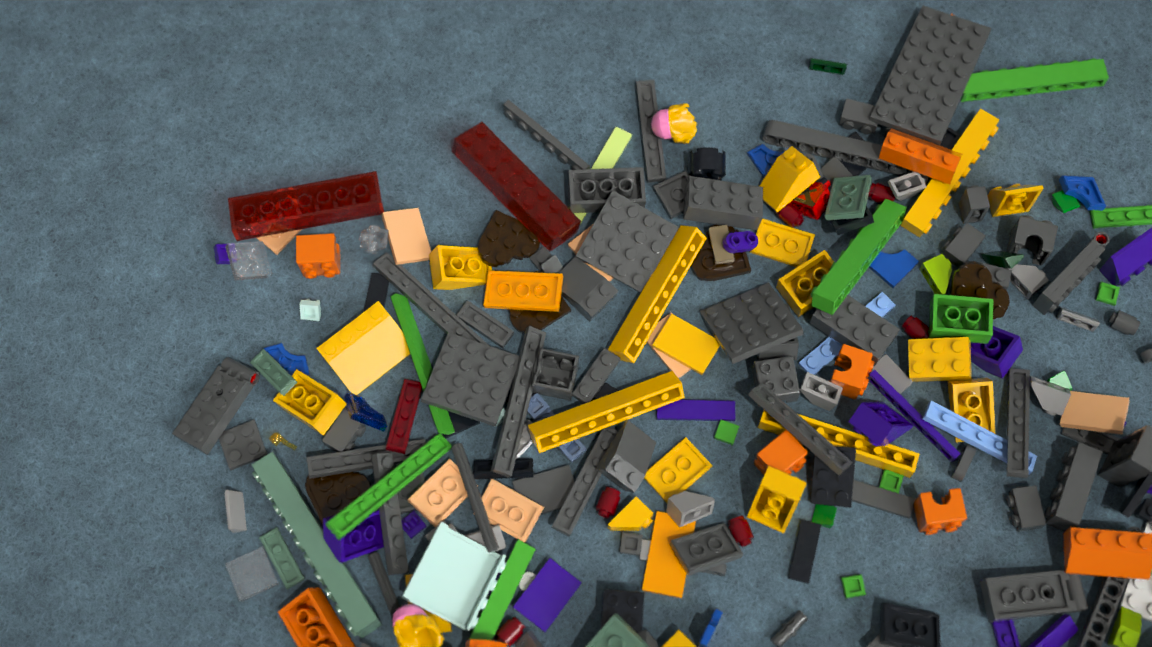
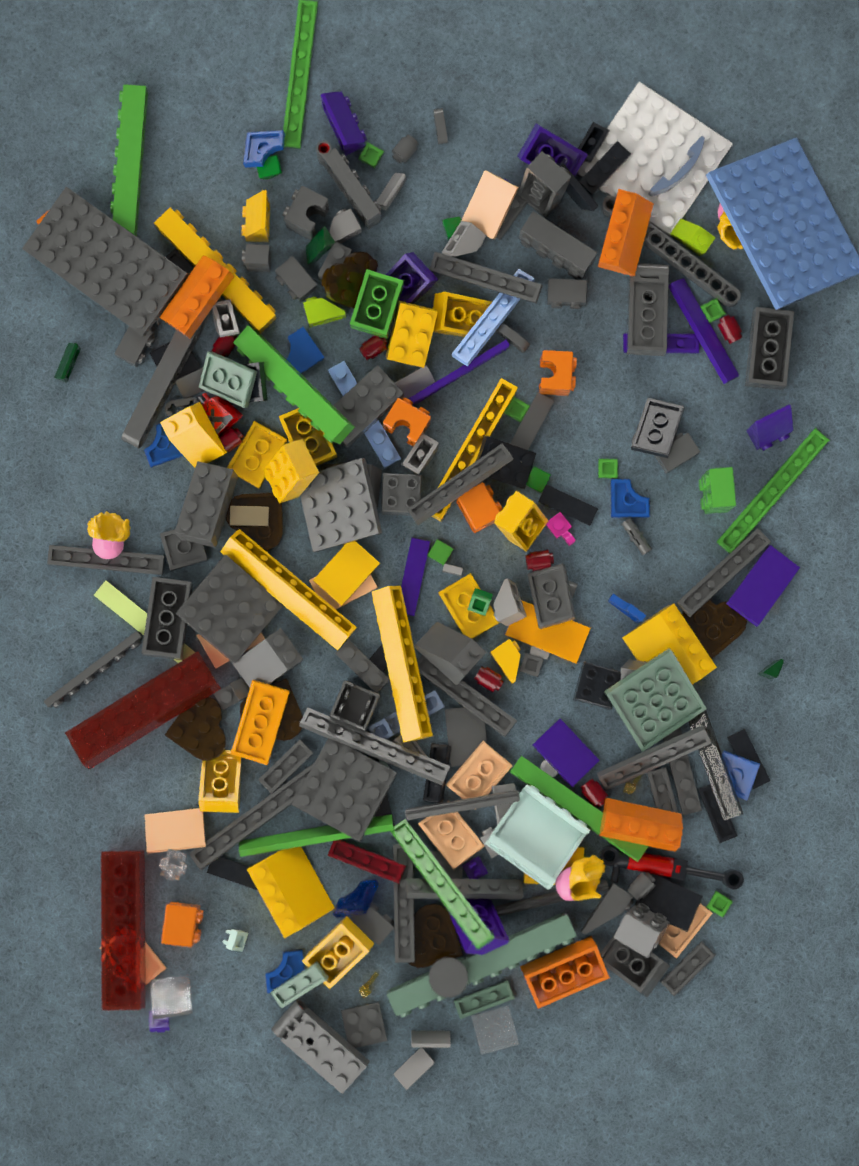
camera: 90 degrees left, 15 degrees up
(205, 500) = (414, 1068): none -> light grey slope
(296, 507) = (448, 977): none -> dark grey tile
(685, 479) = (480, 601): none -> green slope
(707, 163) = (159, 511): black brick -> none
(711, 446) = (451, 569): none -> light grey tile
(744, 242) = (251, 495): dark purple plate -> none
(773, 268) = (290, 471): none -> yellow brick
(779, 547) = (559, 527): none -> dark pink plate
(823, 612) = (626, 502): none -> blue tile
(879, 423) = (464, 406): dark purple slope -> none

